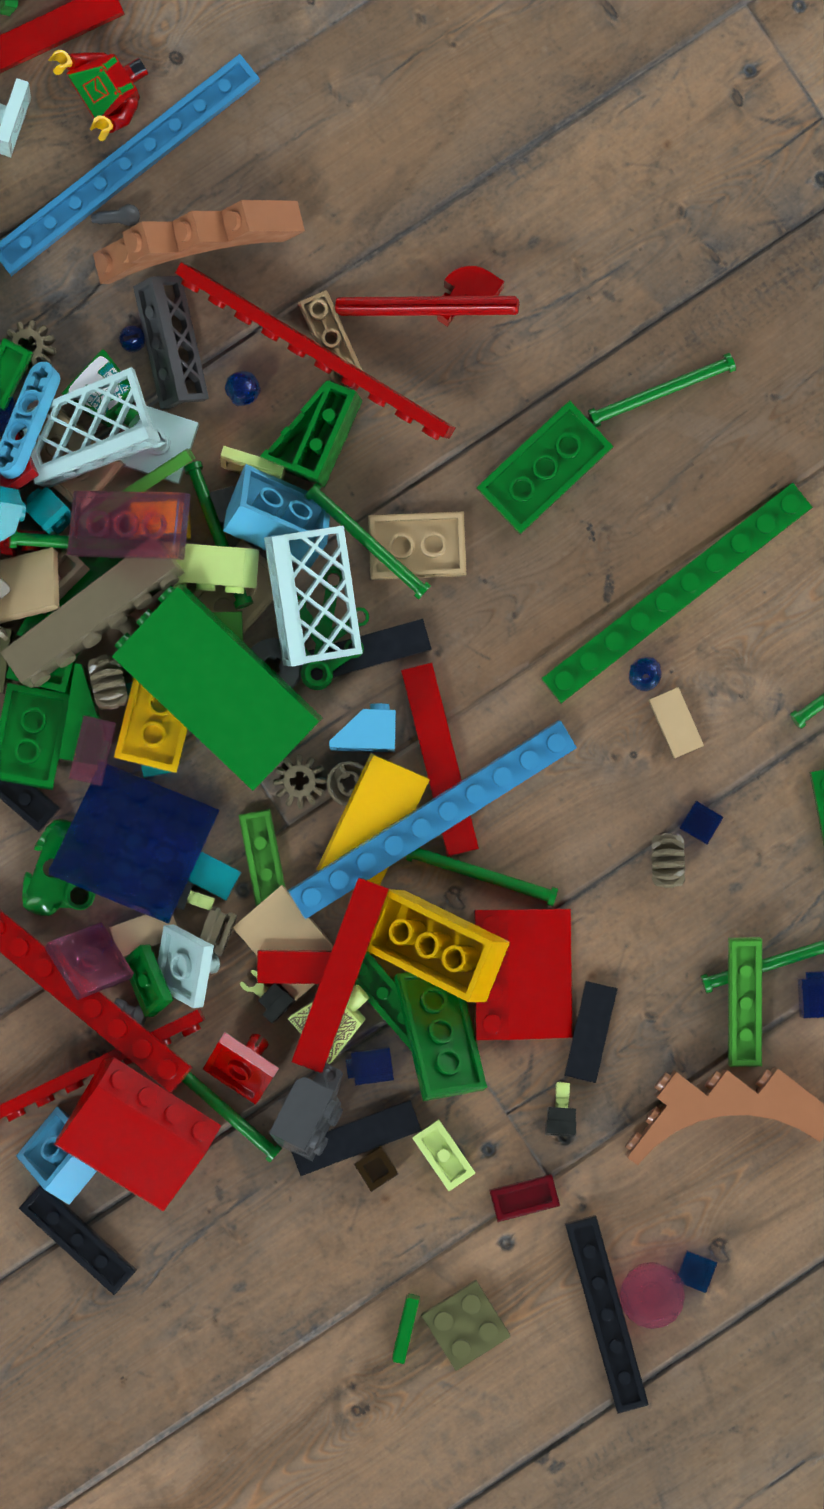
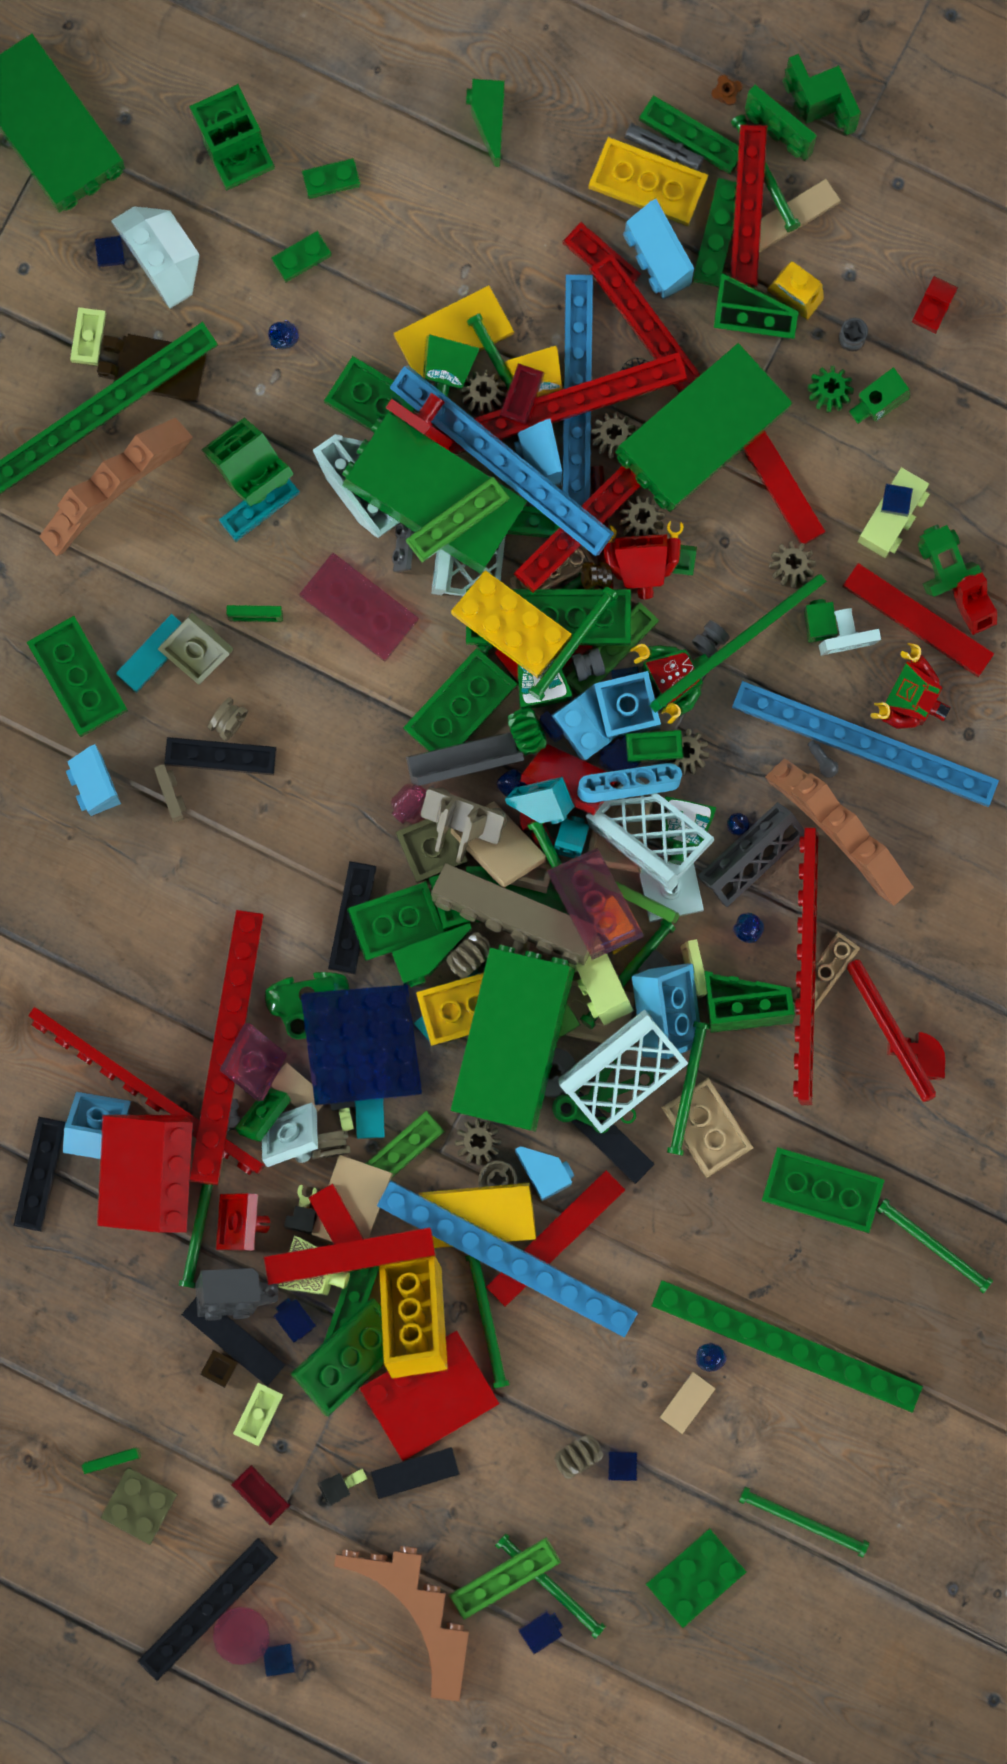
camera: 55 degrees right, 5 degrees down
(92, 750) = (411, 973): clear pink tile -> none

